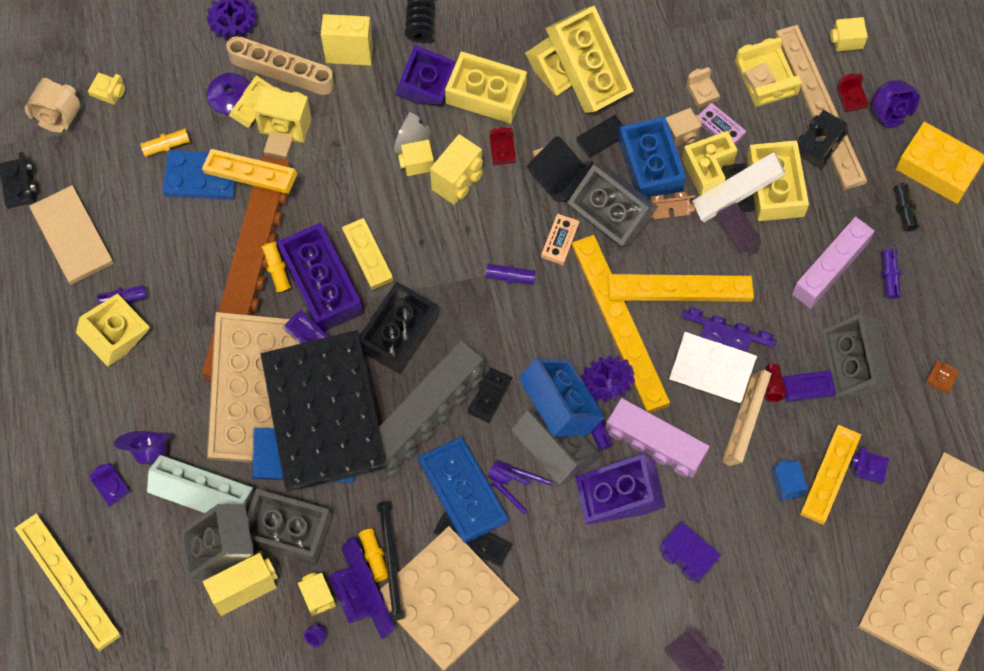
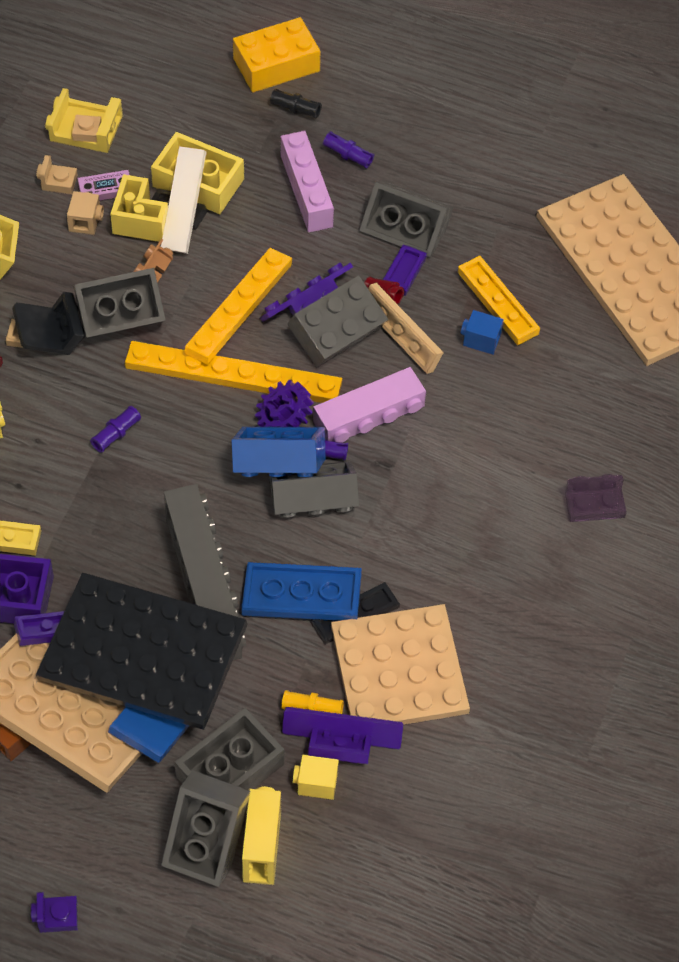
camera: 60 degrees left, 10 degrees down
(143, 445) = (42, 852): dark purple piece -> none
(194, 486) = (127, 824): light aqua brick -> none
(315, 635) = (362, 808): dark purple hinge -> none
(397, 612) = (389, 709): black bar -> none
(398, 327) = (98, 543): black brick -> none
(490, 395) = (227, 521): black slope -> none
(504, 473) = (312, 548): dark purple plant -> none
(560, 239) = (112, 370): light nougat tile -> none
(600, 136) = (37, 279): black tile -> none
(620, 490) = (398, 463): dark purple slope -> none
(651, 157) = (95, 248): blue brick -> none
(689, 553) = (496, 444): dark purple brick -> none
(739, 229) = (221, 226): clear purple bracket -> none
(816, 99) = (154, 106): tan tile -> none
(820, 151) = (184, 104): black brick -> none
(849, 34) = (102, 42): light yellow brick -> none
(852, 93) = (156, 77): dark red bracket -> none
(869, 466) = (511, 269): dark purple bracket -> none
(894, 102) = (192, 50): dark purple cylinder -> none
(942, 377) = (468, 172): dark orange tile -> none

